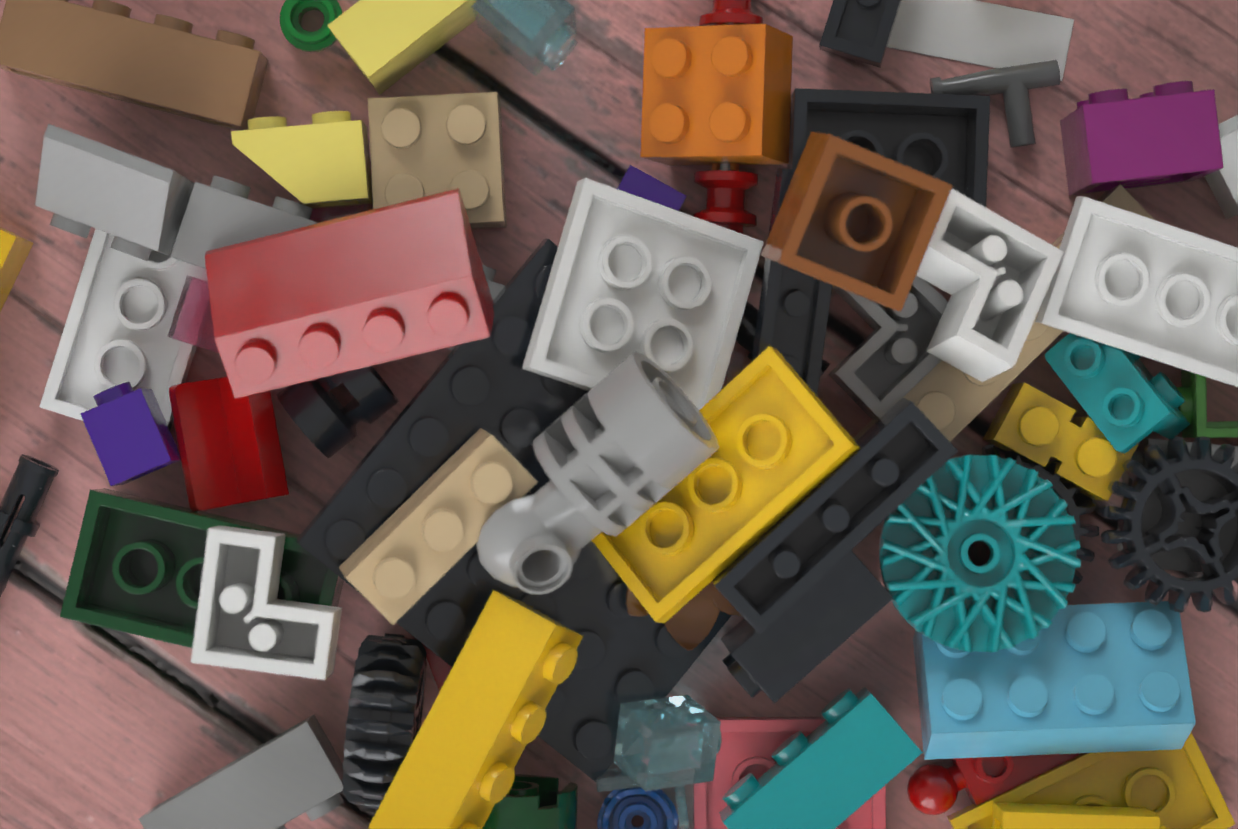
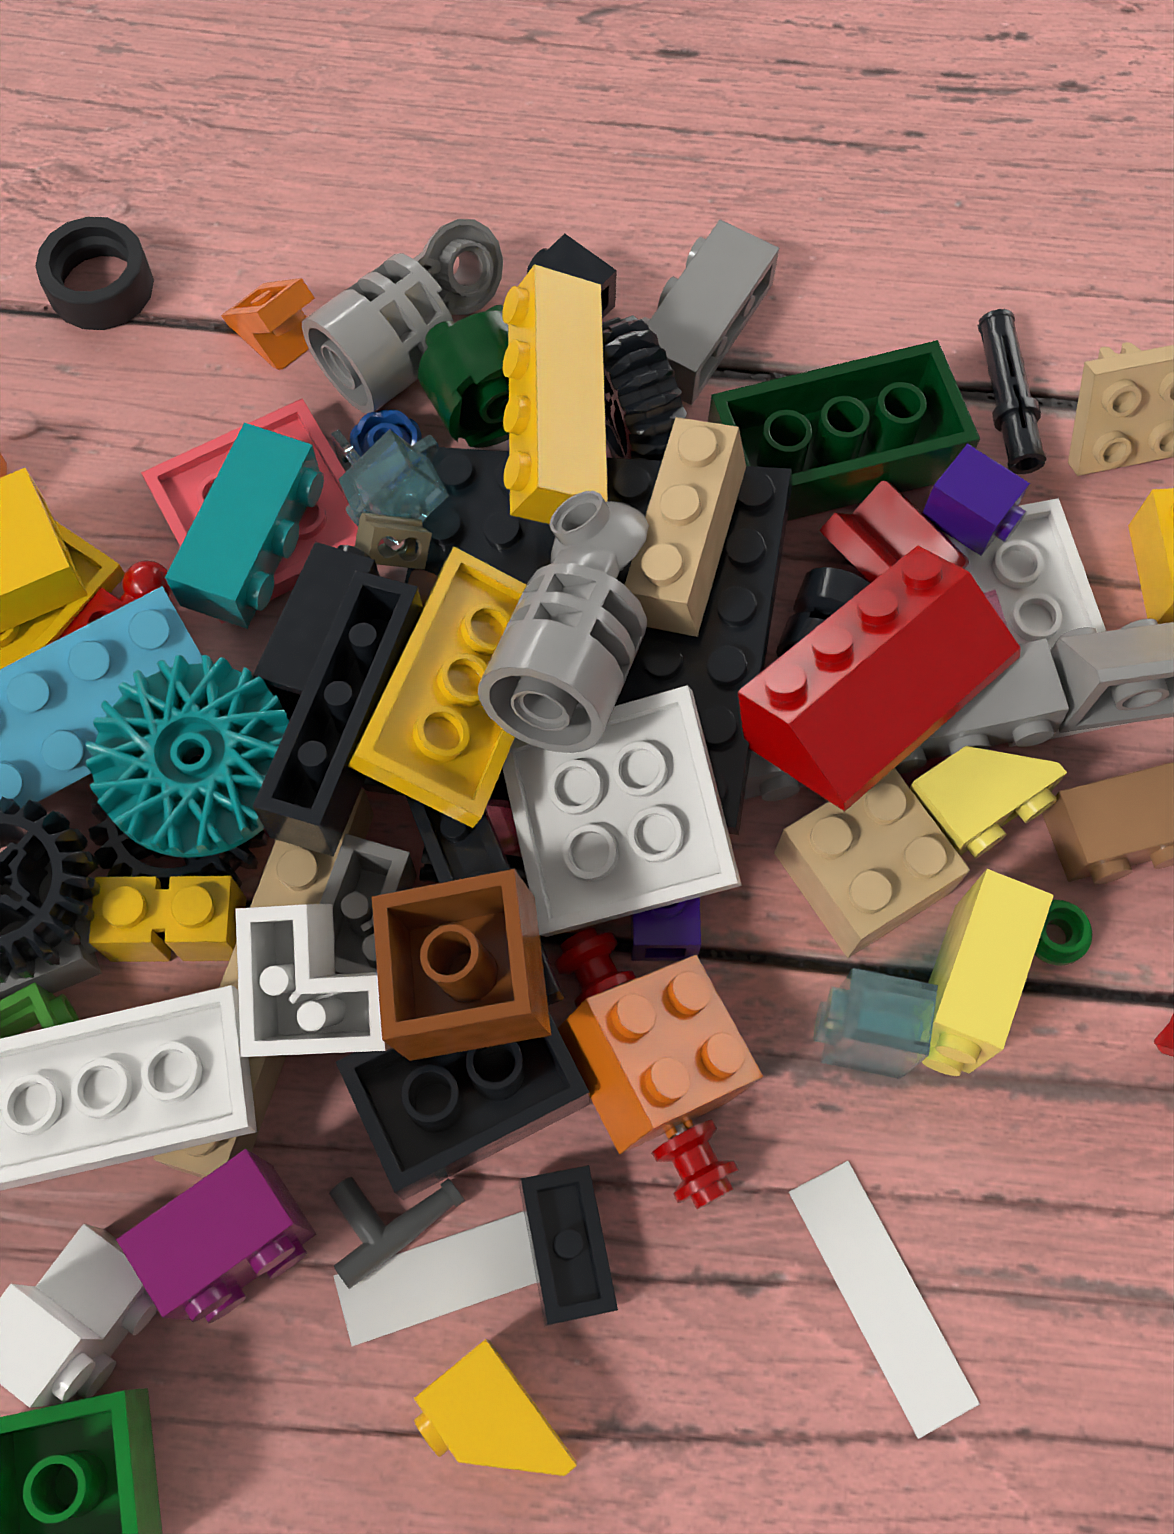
camera: 150 degrees right, 20 degrees down
(245, 623) = (794, 385): white brick -> none
(698, 685) = (375, 527): none -> dark tan piece
(1118, 391) = (121, 972): teal bracket -> none

